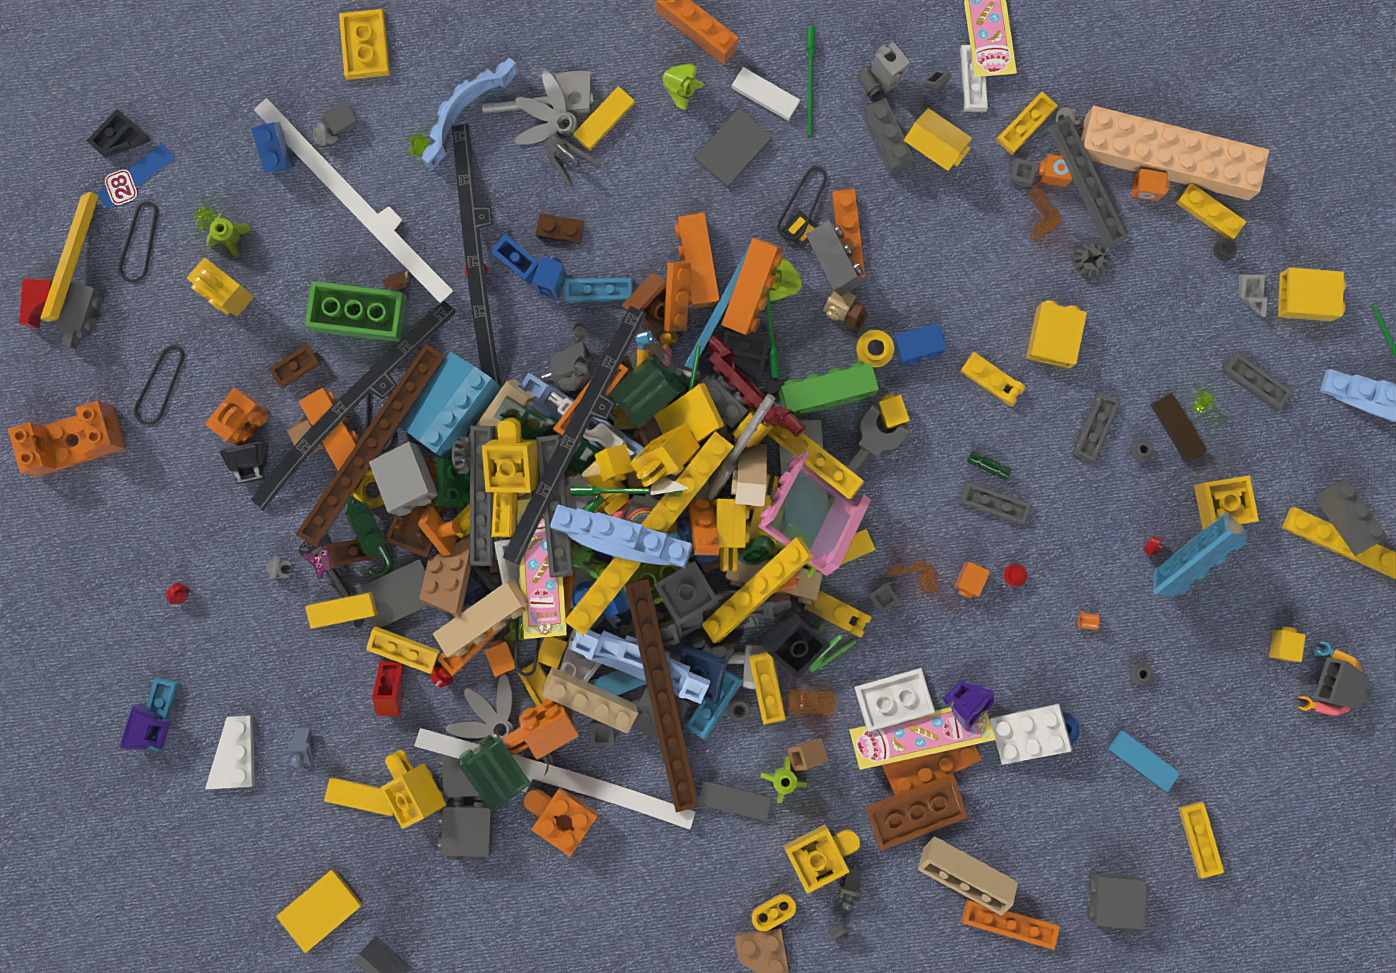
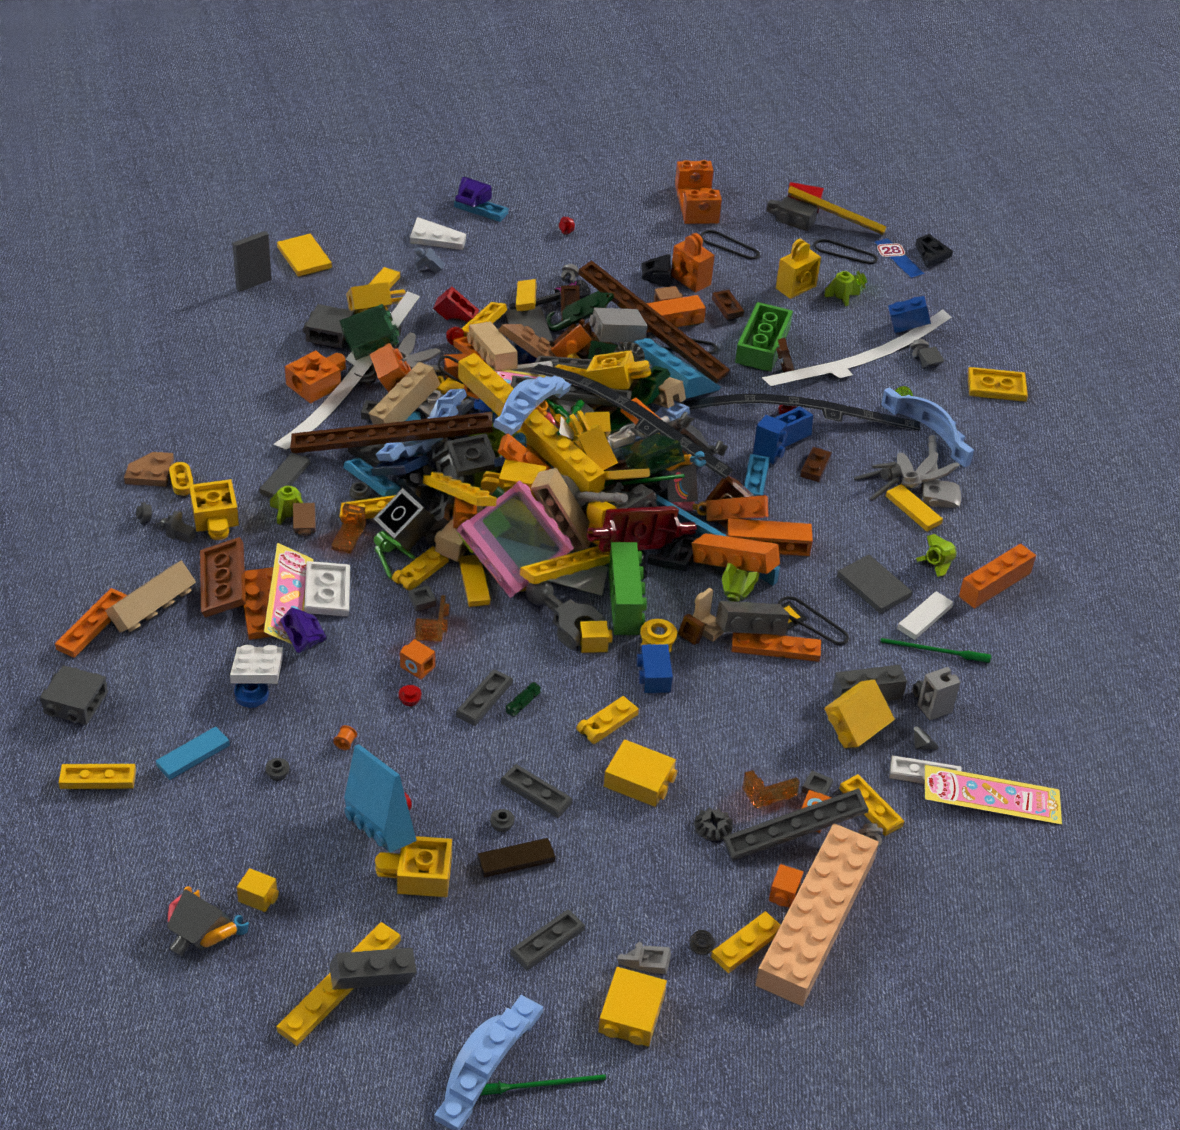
camera: 100 degrees right, 40 degrees down
(374, 381) = (702, 334): black sticker -> none
(773, 354) = (672, 570): green piece -> none
(1204, 400) = (539, 879): clear neon green plate -> none

